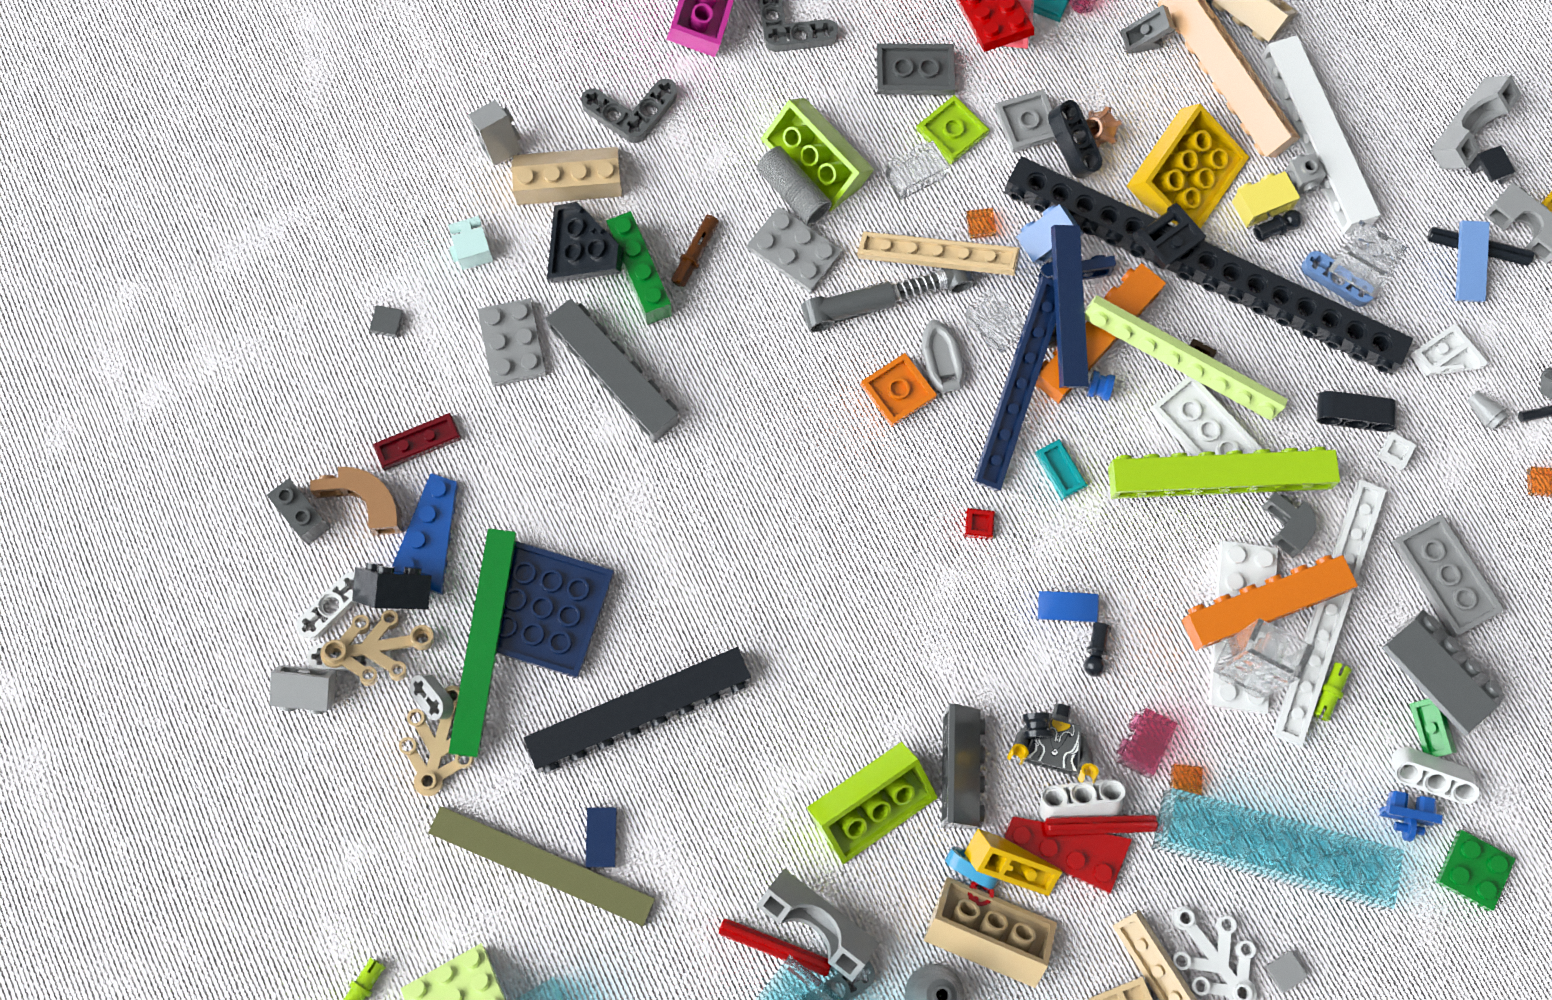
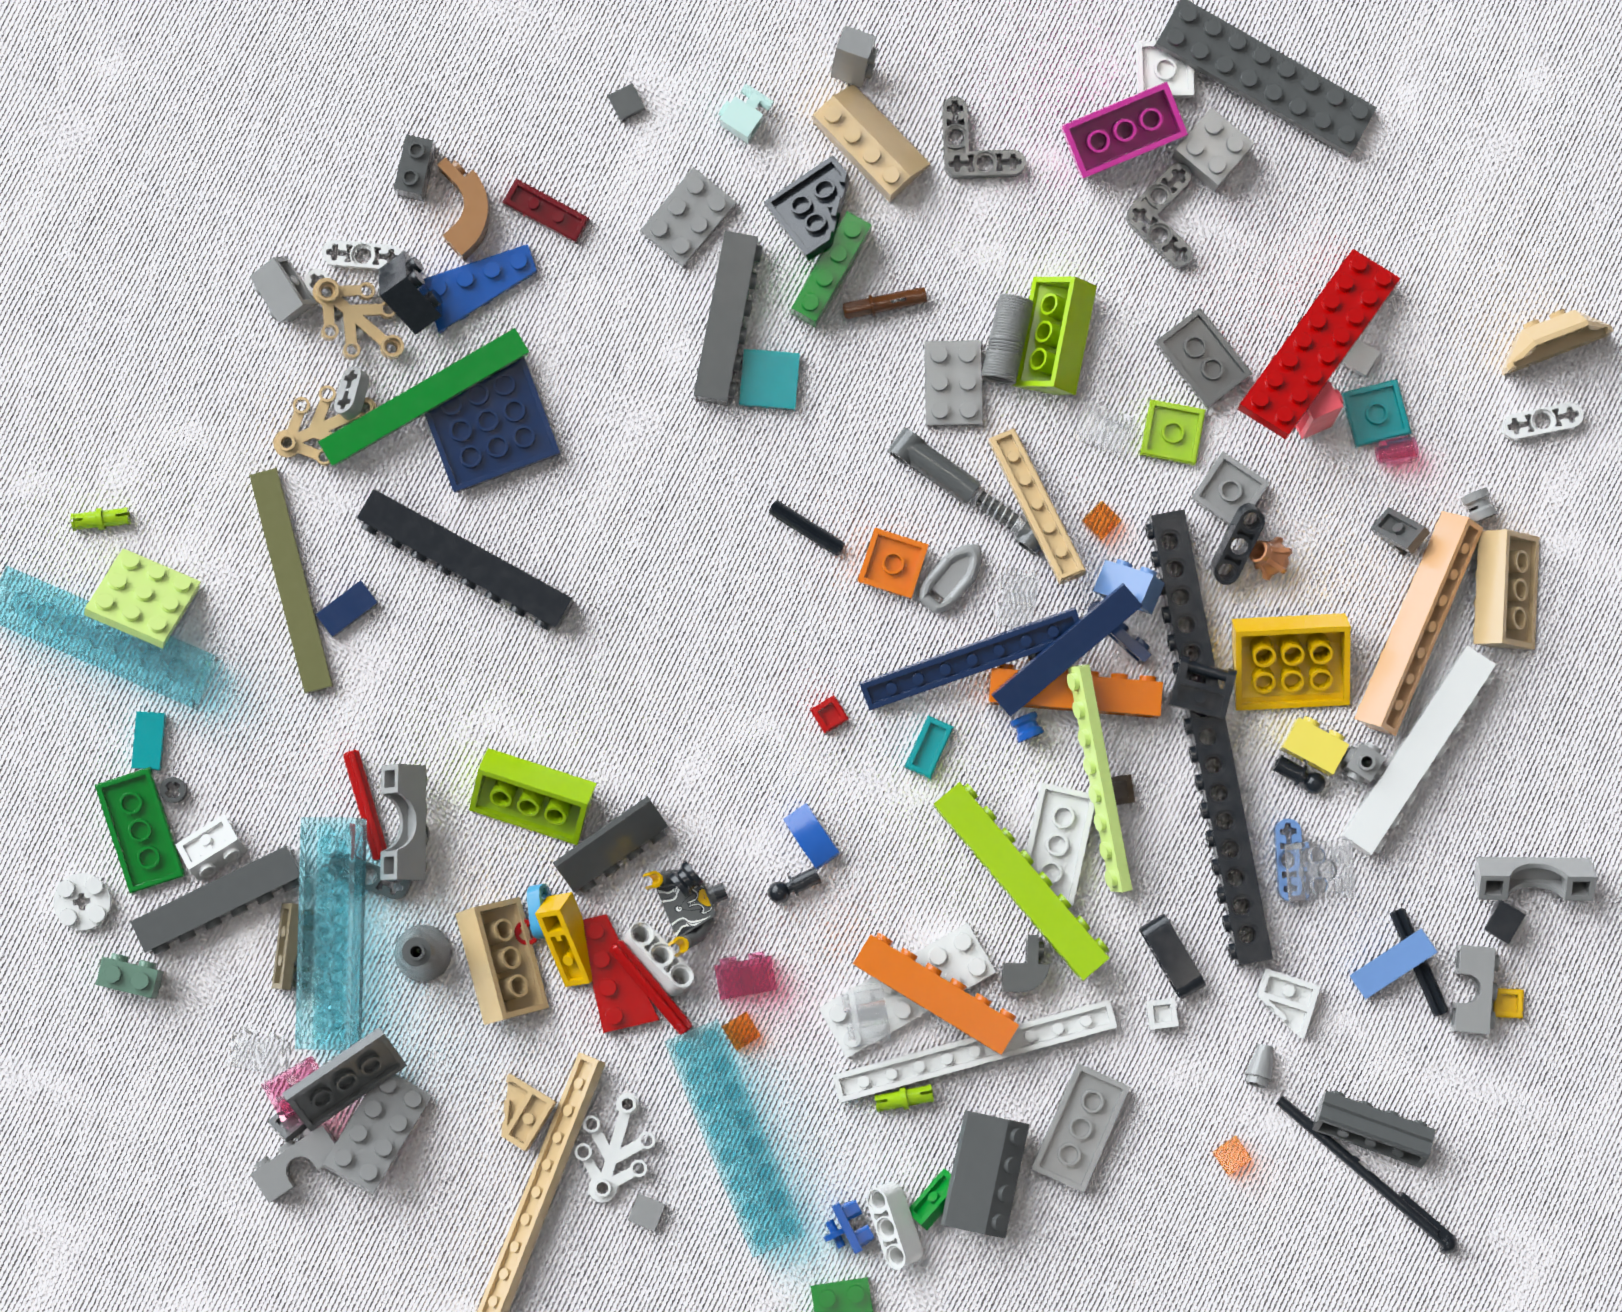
camera: 55 degrees right, 10 degrees up
(684, 375) = (769, 379): none -> teal tile
(820, 432) = (806, 528): none -> black axle

